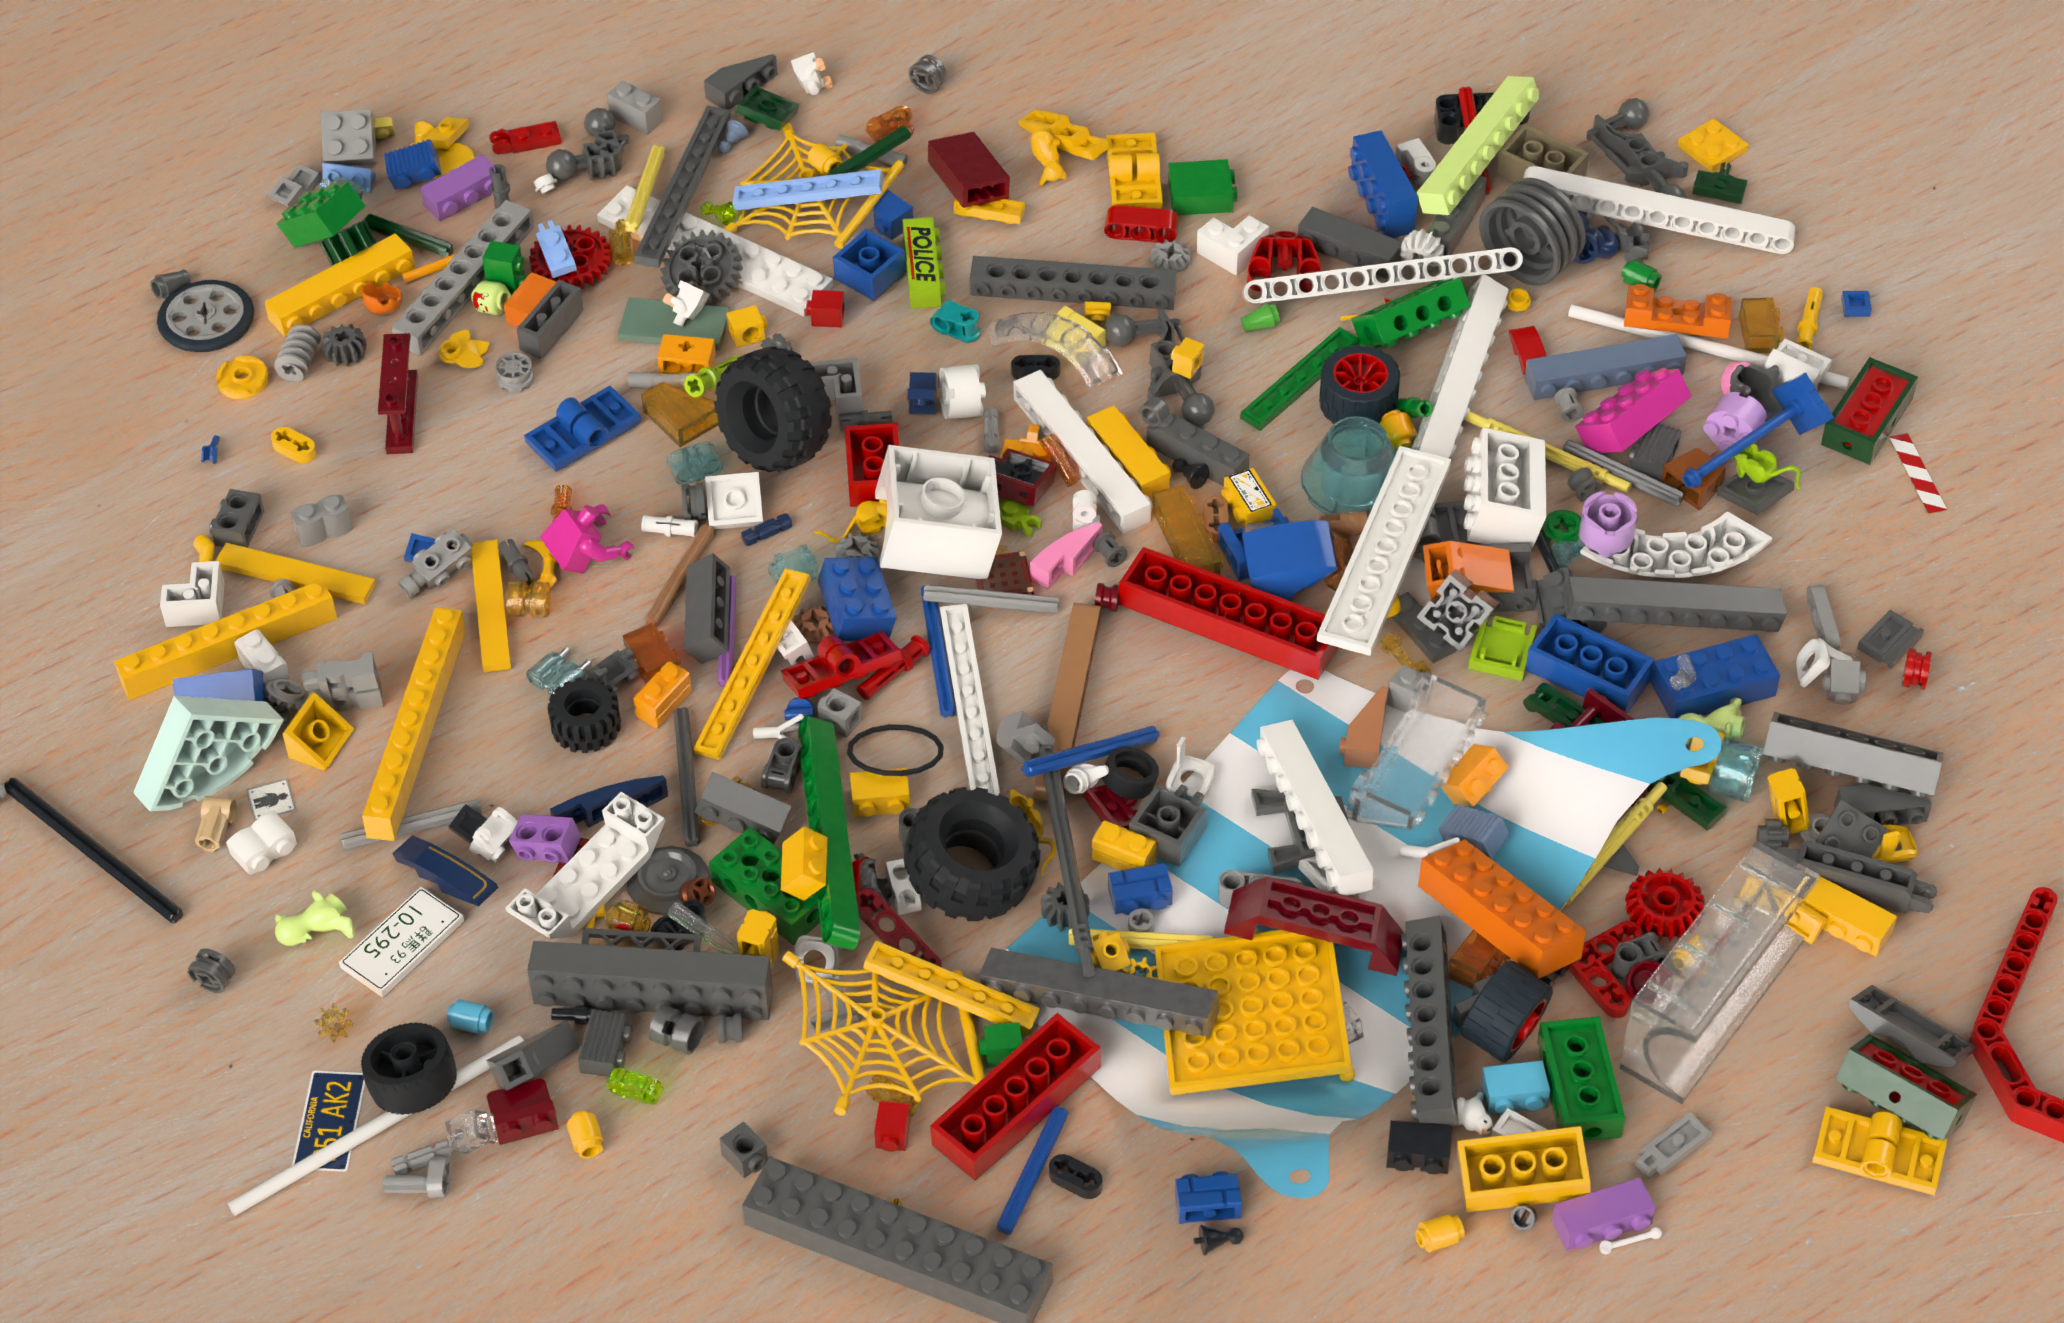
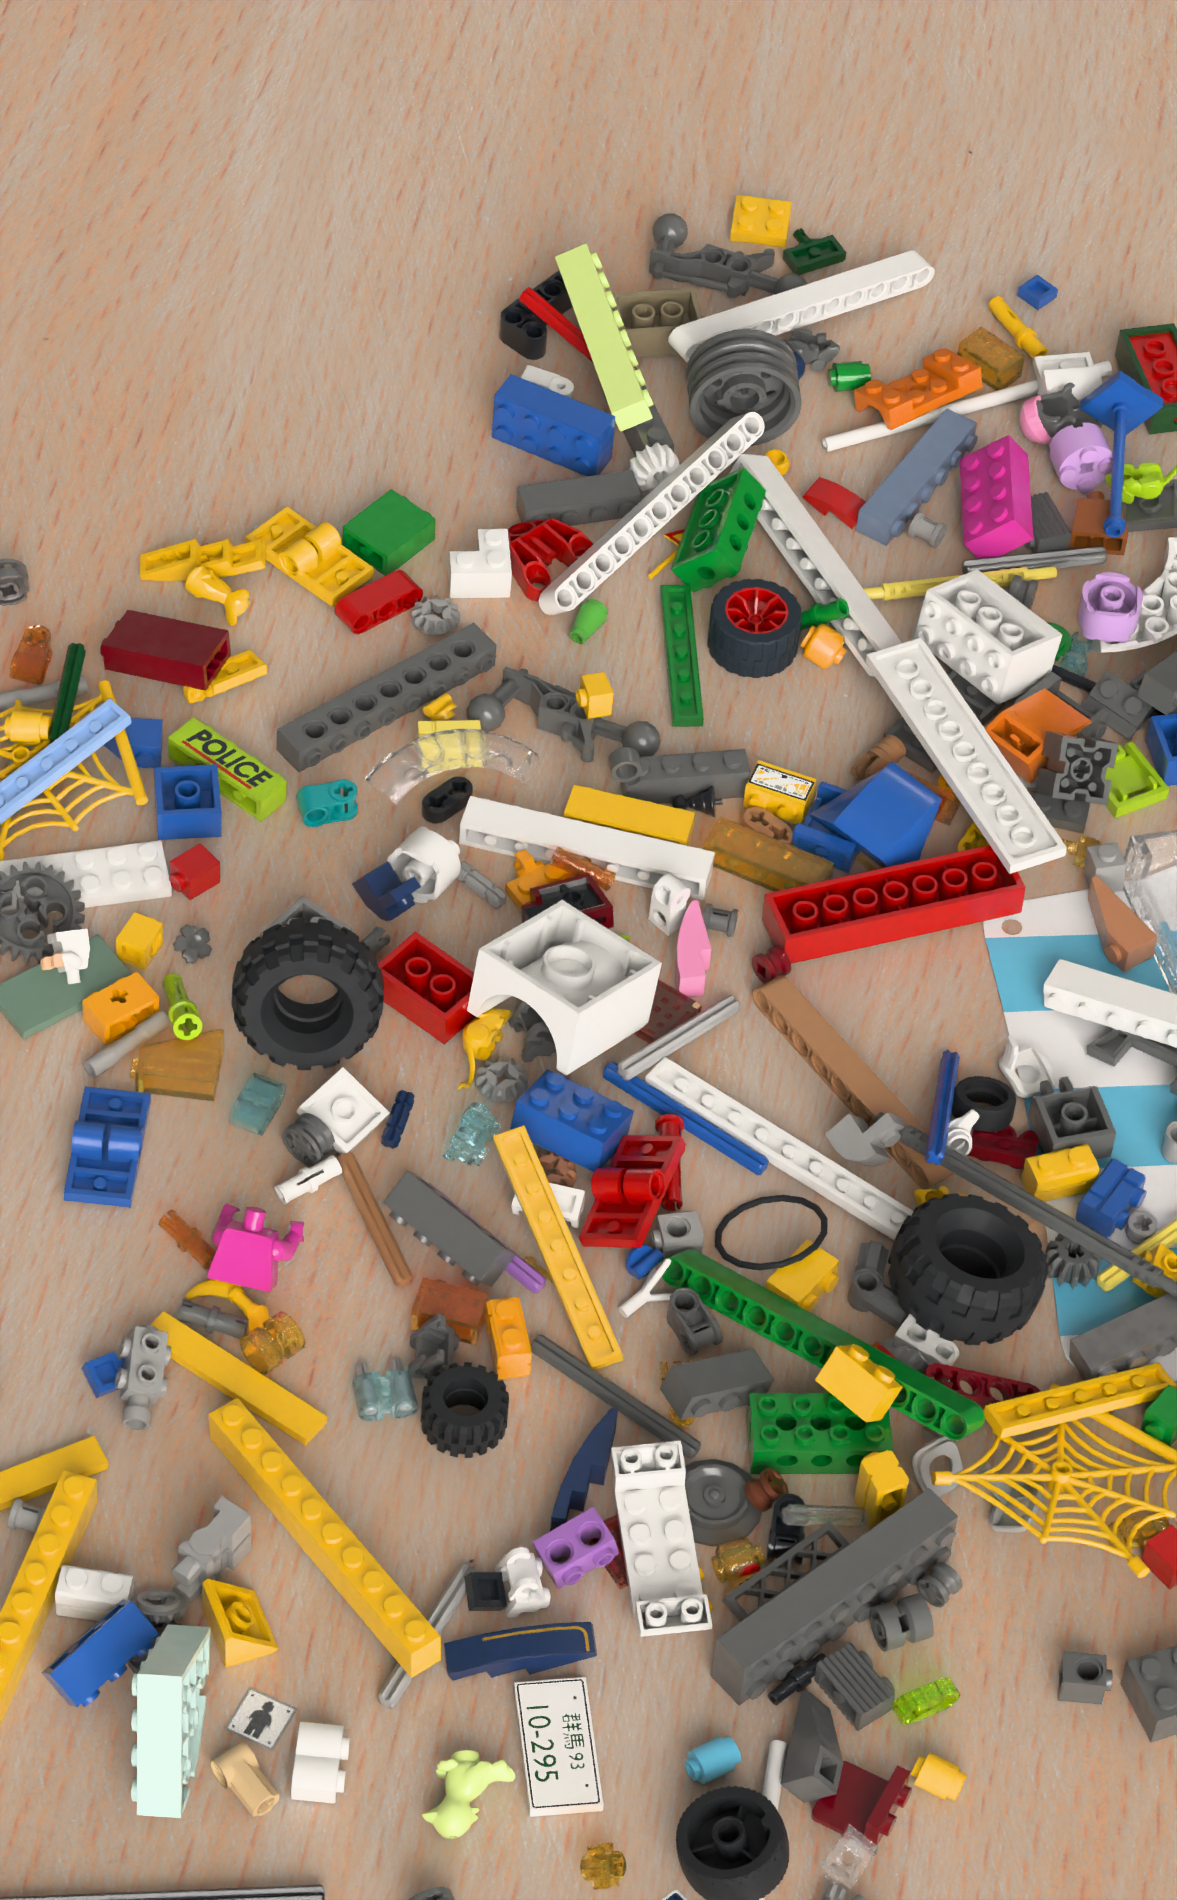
camera: 50 degrees left, 0 degrees up
(1348, 466) = (833, 706): clear light blue cone -> none

